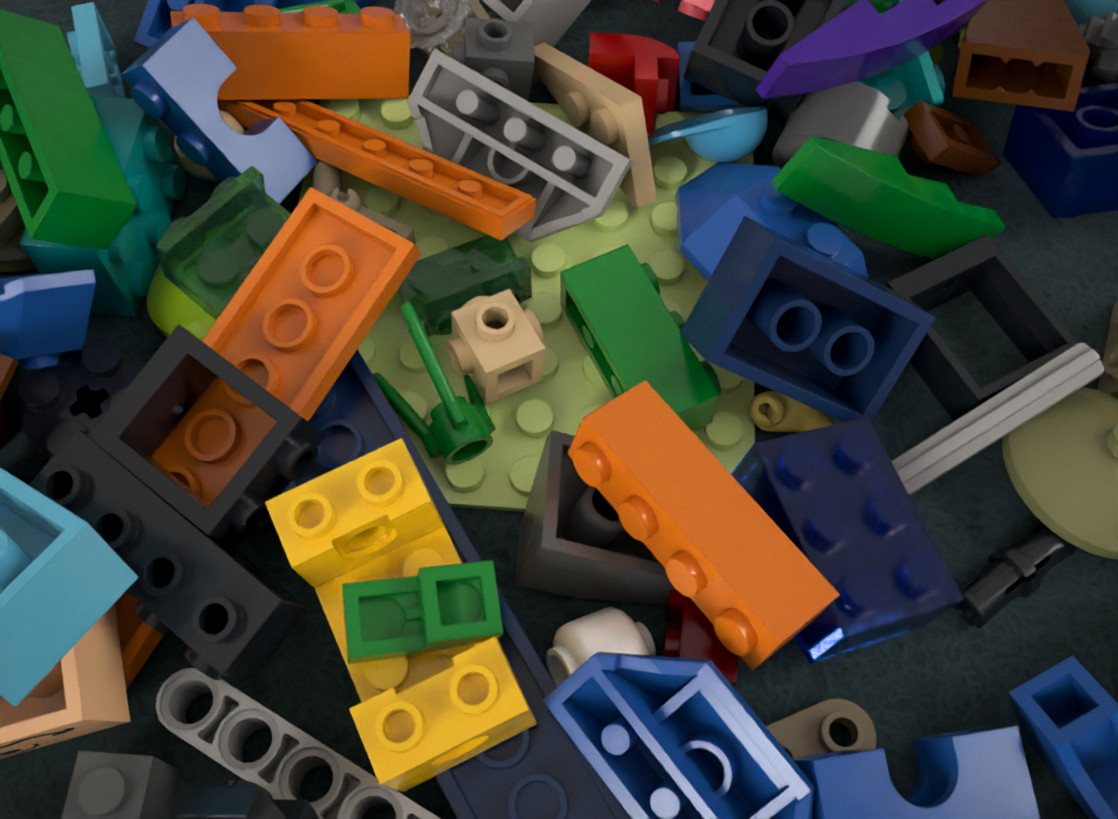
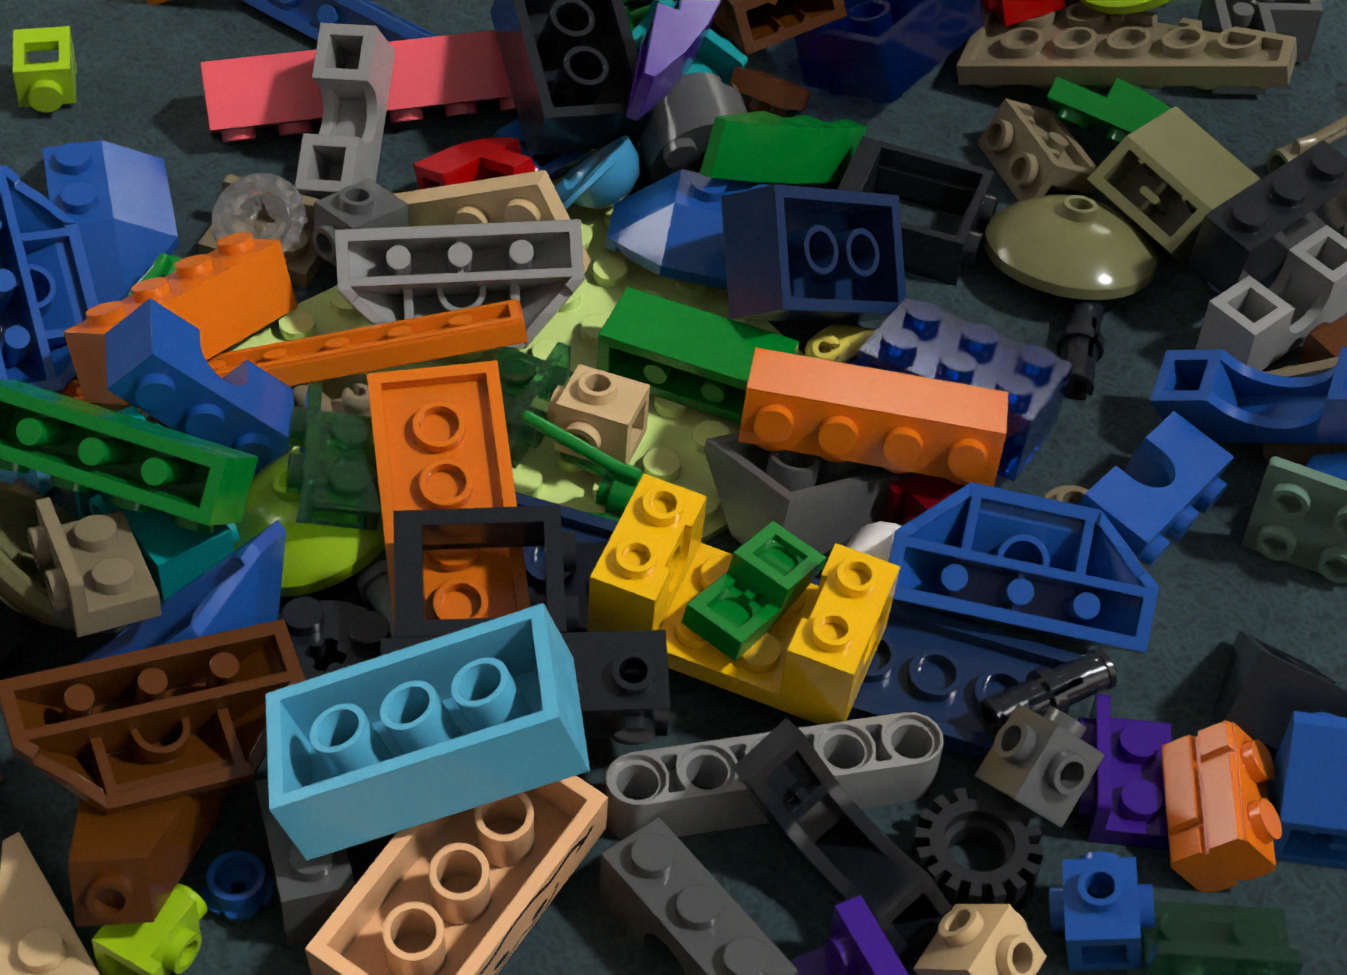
camera: 45 degrees left, 15 degrees down
(998, 416) = (986, 241): light grey axle -> none

